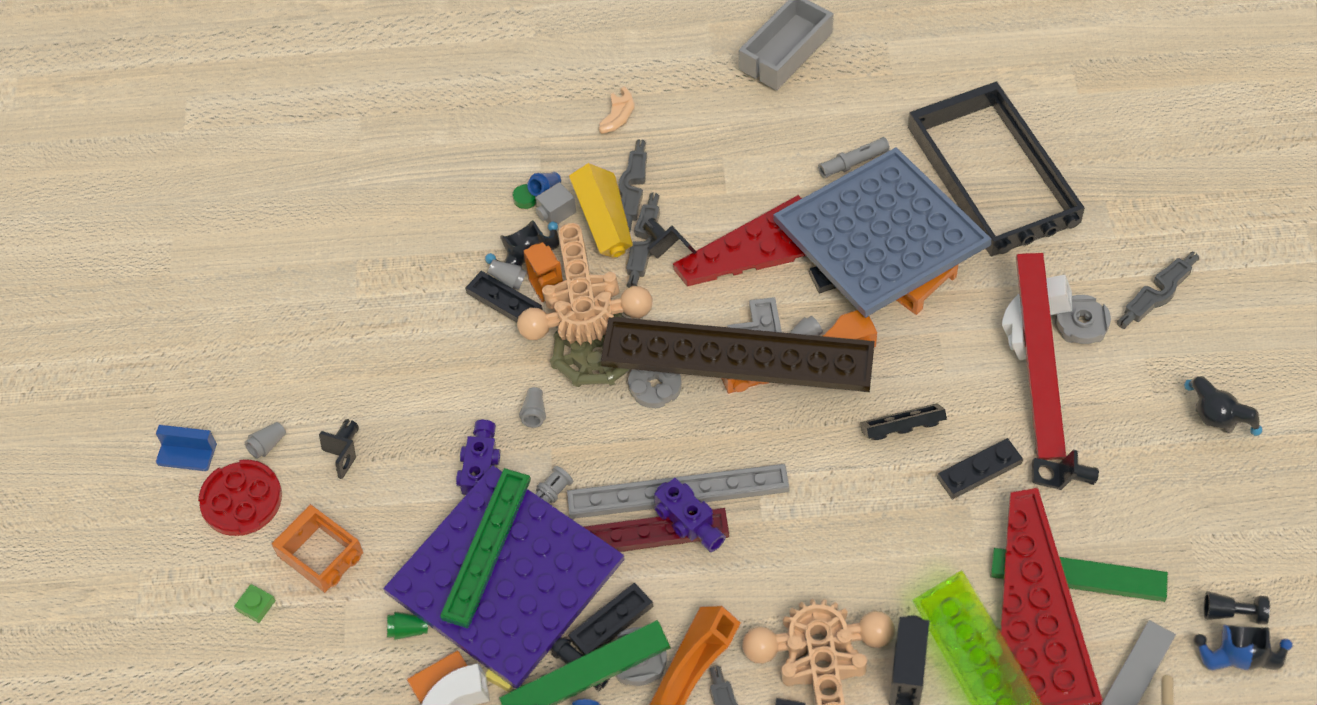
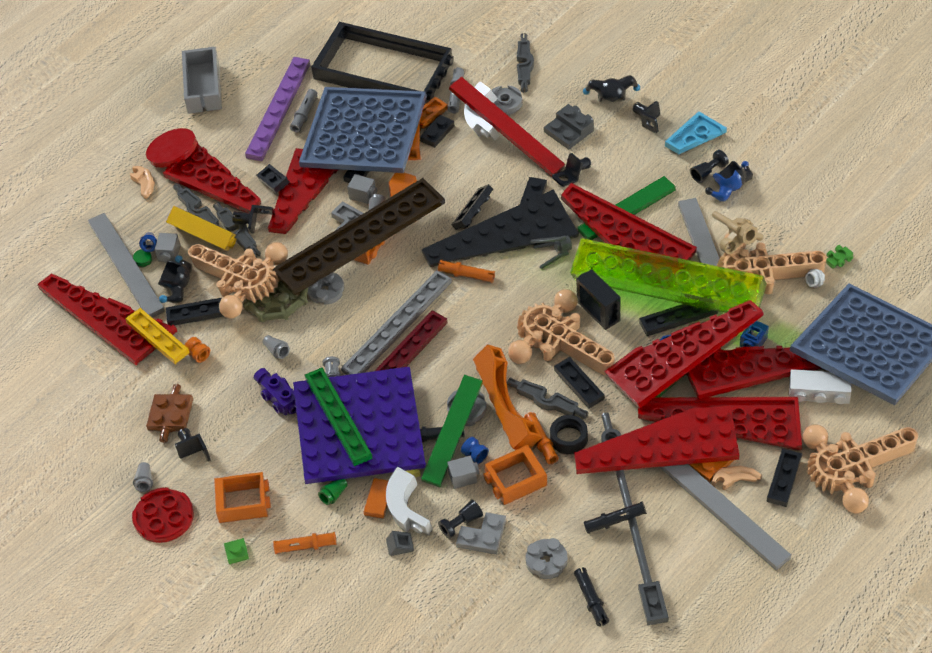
camera: 45 degrees left, 5 degrees down
(185, 448) = (99, 518): blue panel -> none
(326, 665) = (314, 541): none -> orange pin
(364, 390) = (169, 412): none -> dark orange plate
(425, 256) = (101, 316): none -> red wing
(434, 296) = (157, 336): none -> yellow plate
(459, 343) = (197, 350): none -> orange wheel
(501, 192) = (126, 265): none -> light grey tile
(507, 273) = (184, 296): light grey cone -> none
(542, 268) = (198, 272): orange window -> none
(611, 620) = (434, 401): black plate -> none
(677, 95) = (171, 147): none -> red tile
(678, 510) = (418, 324): dark purple brick -> none
(679, 153) = (213, 179): none -> red wing
(735, 211) = (273, 178): none -> black plate
(808, 485) = (466, 271): none -> orange pin
(811, 298) = (361, 188): none -> light grey brick
(832, 134) = (277, 109): none -> medium lavender plate
(937, 495) = (506, 232): none -> black wing
(950, 553) = (560, 244): none -> dark grey plant
(969, 295) = (437, 131): none -> black plate
(985, 267) = (432, 110): none -> orange plate
(1052, 256) = (454, 101): none -> light grey pin
(1123, 414) = (570, 126): none -> dark grey plate
(1233, 476) = (648, 115): none -> black bracket
(1266, 548) = (694, 133): none -> medium azure wing

